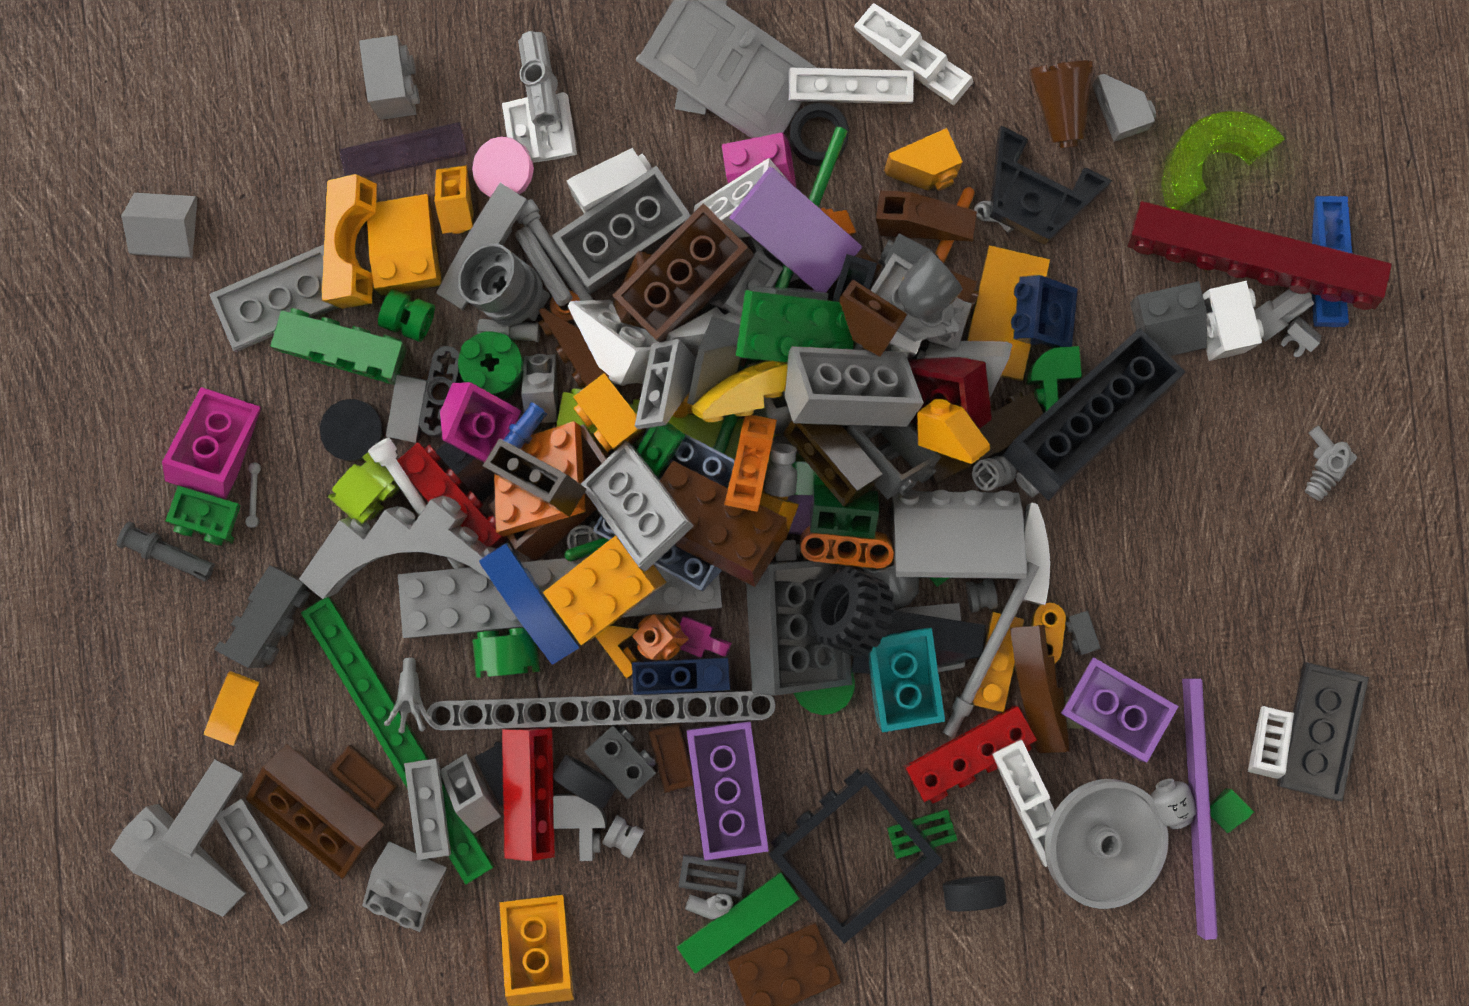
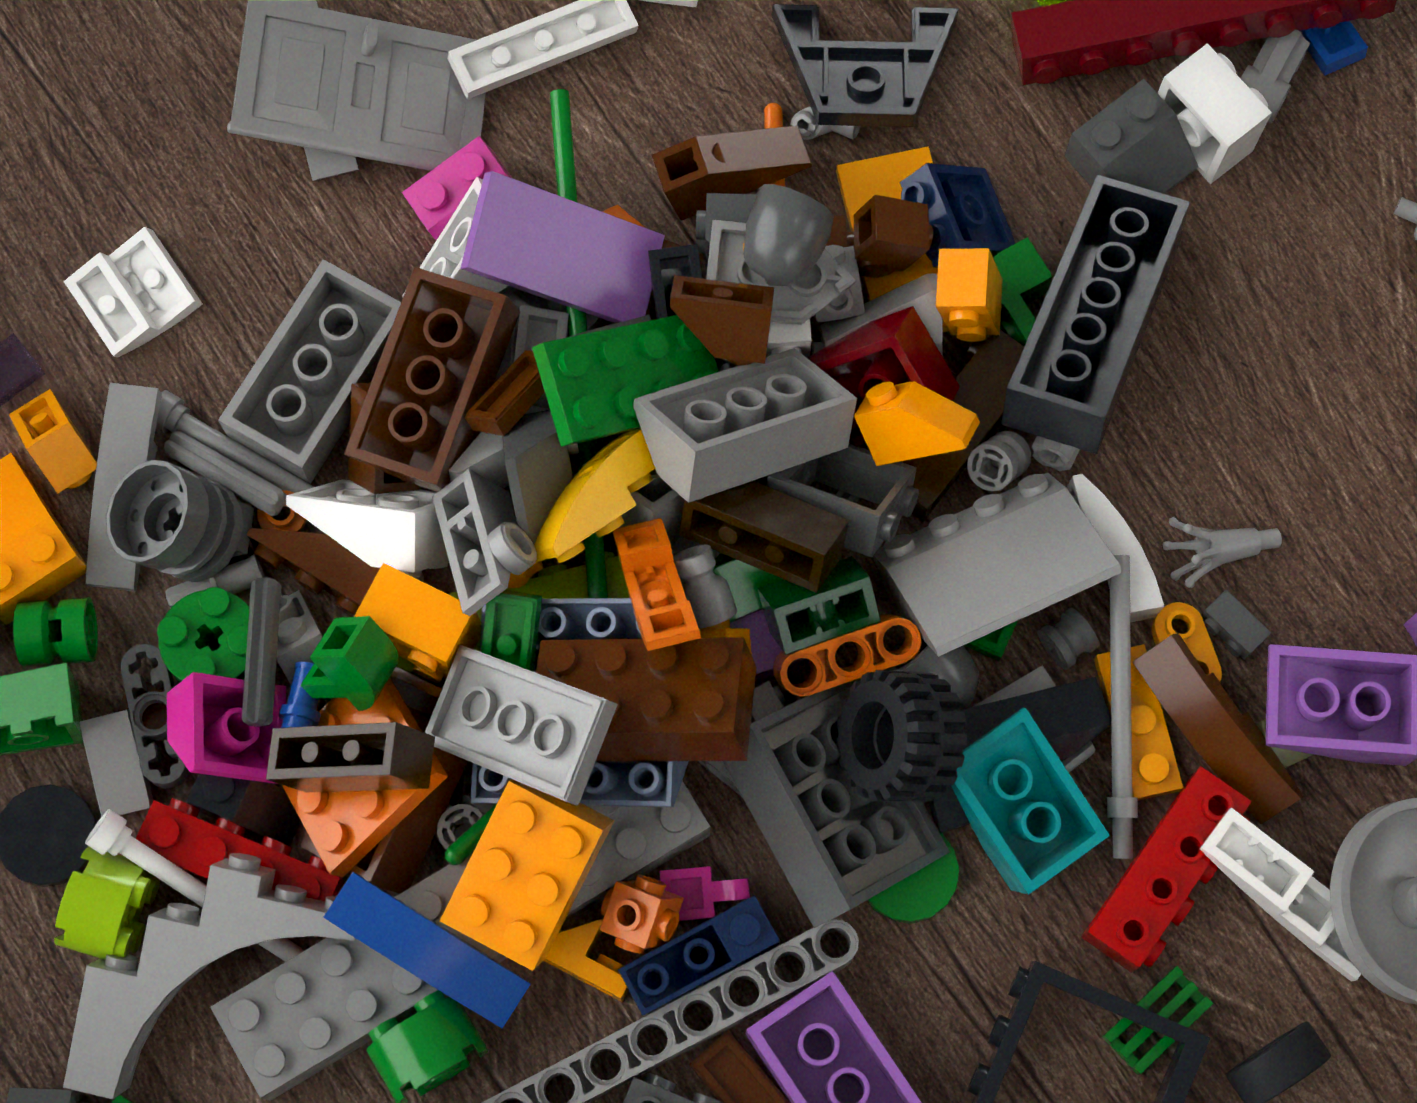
camera: 30 degrees left, 10 degrees down
(504, 162) = (101, 355): bright pink tile -> none
(514, 387) = (261, 652): none -> dark grey axle
(538, 79) = (101, 222): light grey piece -> none
(560, 421) = (351, 662): none -> green brick
(606, 179) = (256, 313): white slope -> none
(680, 400) = (512, 548): none -> light grey tile
(721, 307) = (508, 397): none -> reddish brown tile
(808, 112) = (504, 100): black tyre -> none
(926, 162) = (696, 91): light orange slope -> none
(996, 309) = (890, 235): none -> reddish brown brick
(1023, 368) = (969, 293): none -> light orange brick
(1097, 583) = (1219, 547): none -> light grey piece
(1303, 334) = (1317, 90): light grey tile -> none

